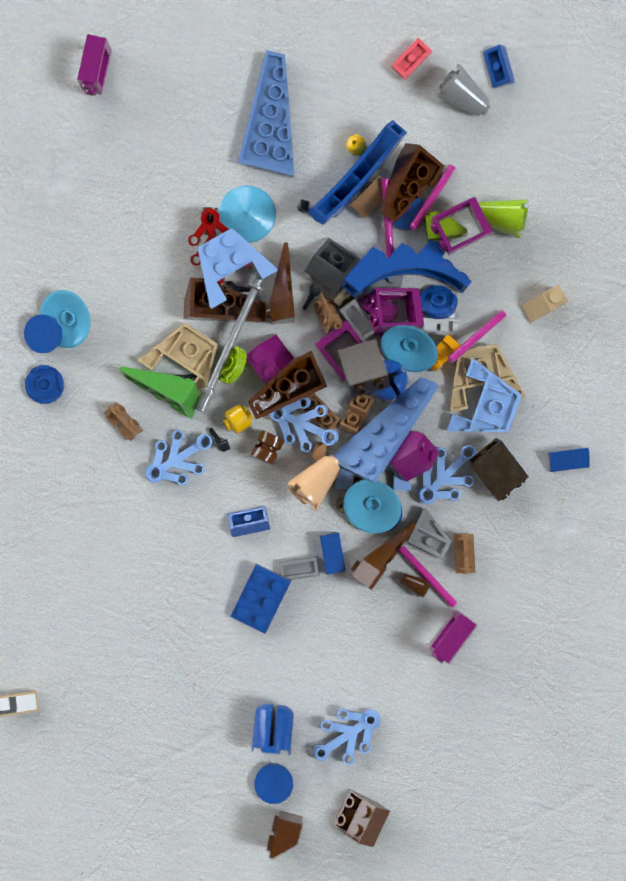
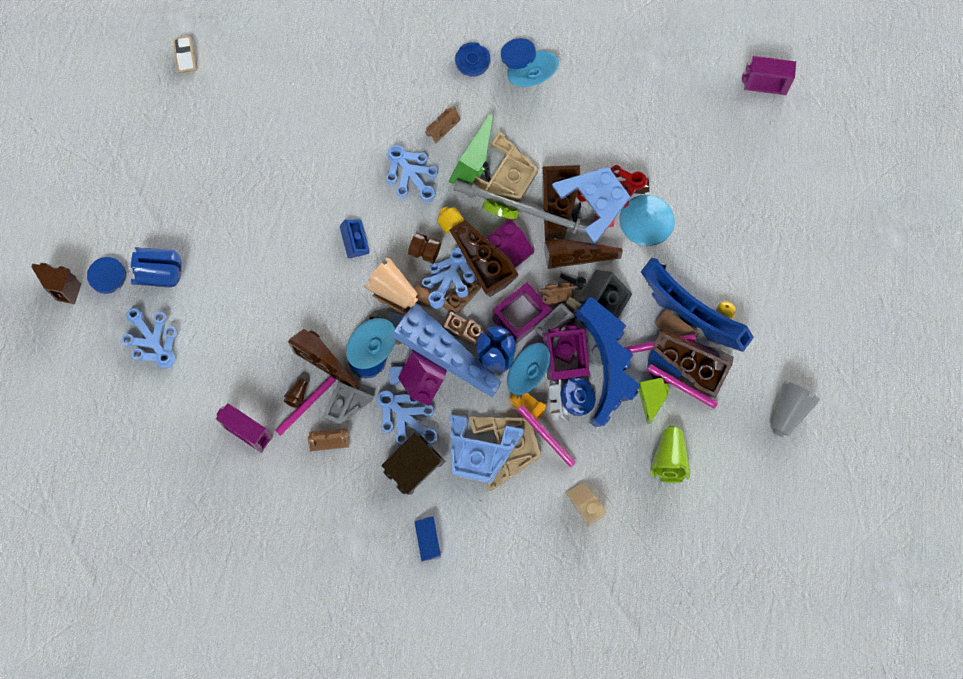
camera: 90 degrees right, 15 degrees down
(222, 445) = (425, 209): black hand -> none
(260, 598) = (281, 252): blue plate -> none
(268, 131) = (731, 232): medium blue wing -> none
(299, 568) = (310, 285): light grey tile -> none
(332, 553) = (325, 314): blue slope -> none
(361, 818) = (68, 355): reddish brown slope -> none
(364, 368) = (504, 319): panel -> none
(411, 59) = (818, 359): coral plate -> none
(478, 216) = (651, 385): magenta window -> none
(499, 66) = (824, 446): blue slope -> none

